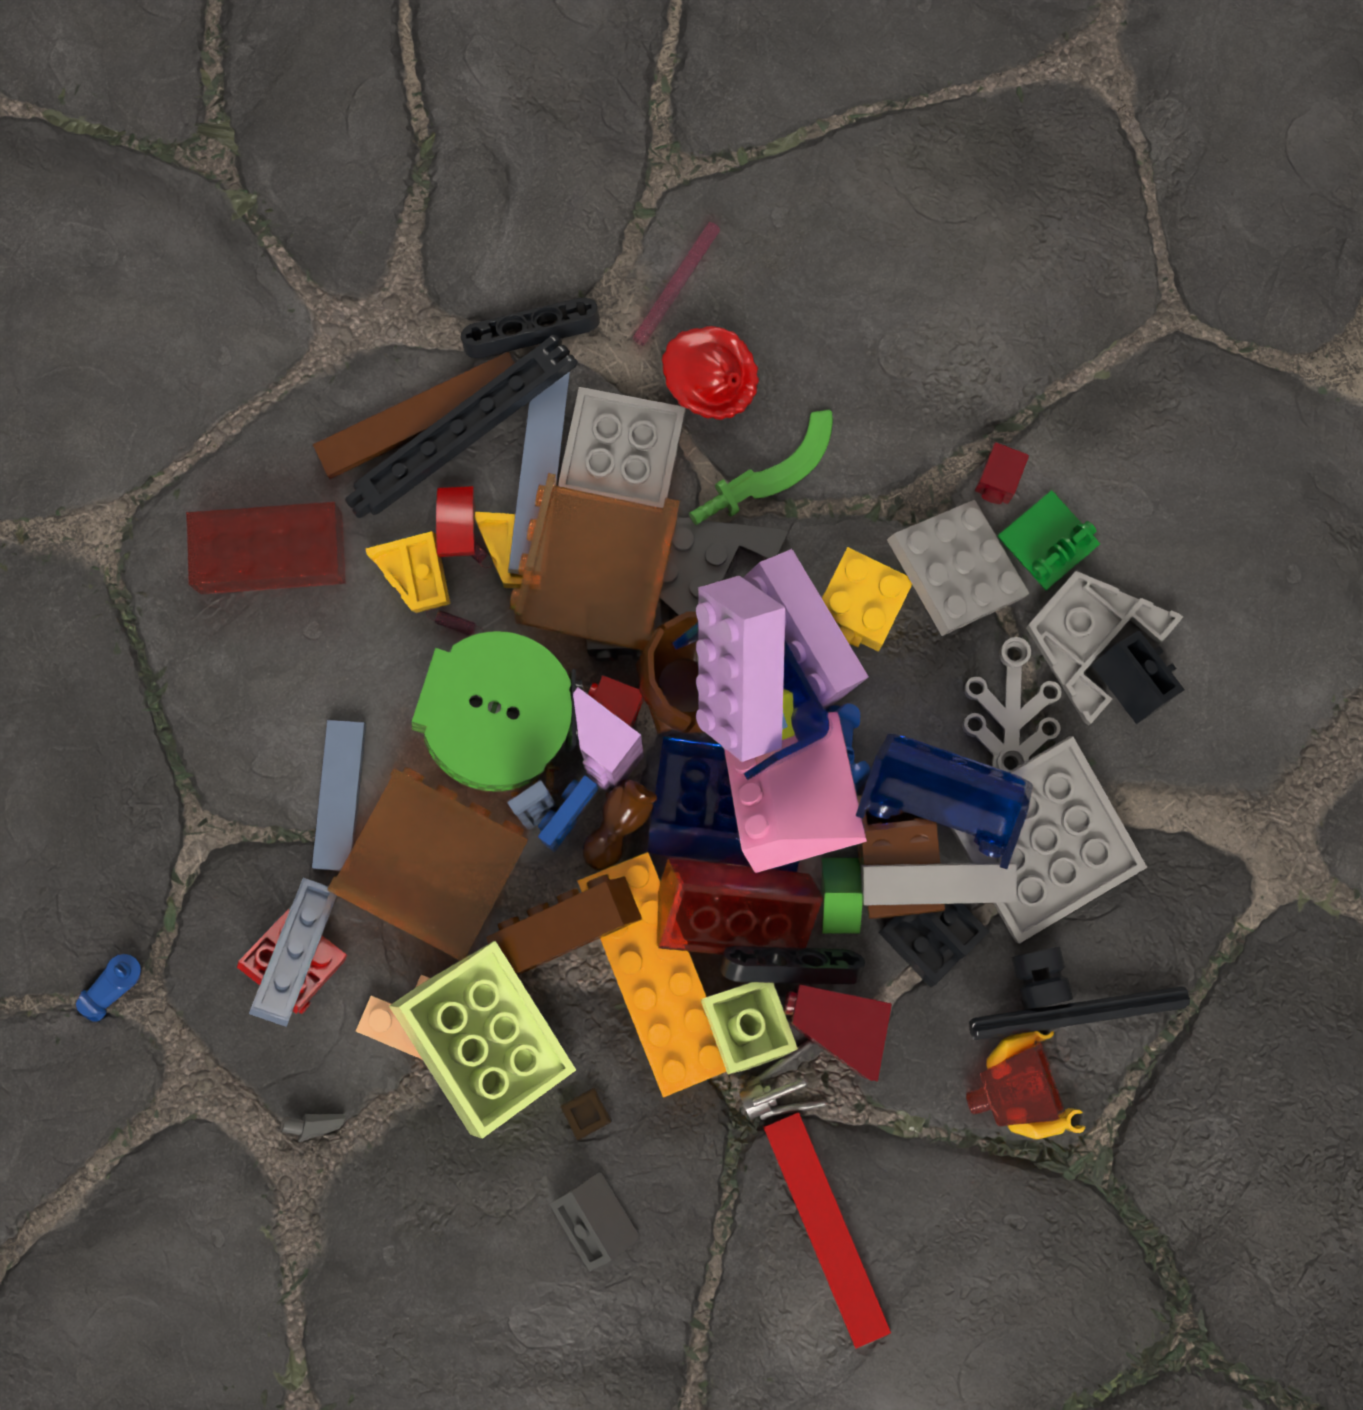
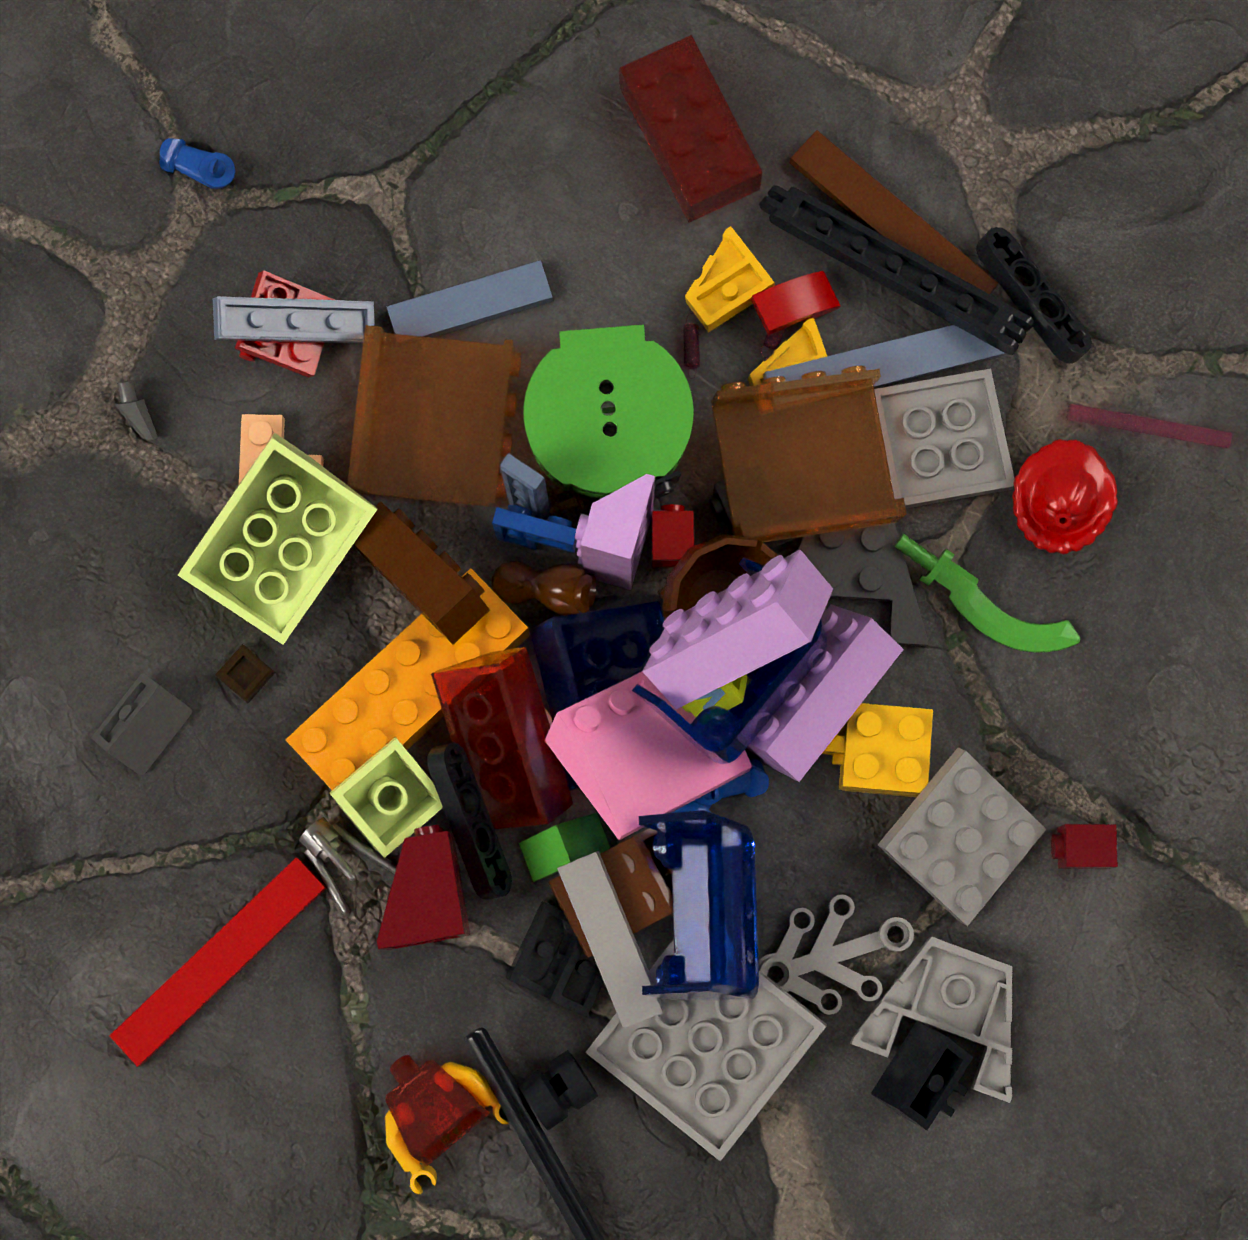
camera: 70 degrees right, 0 degrees up
(1049, 540) = (1036, 926): green hinge -> none

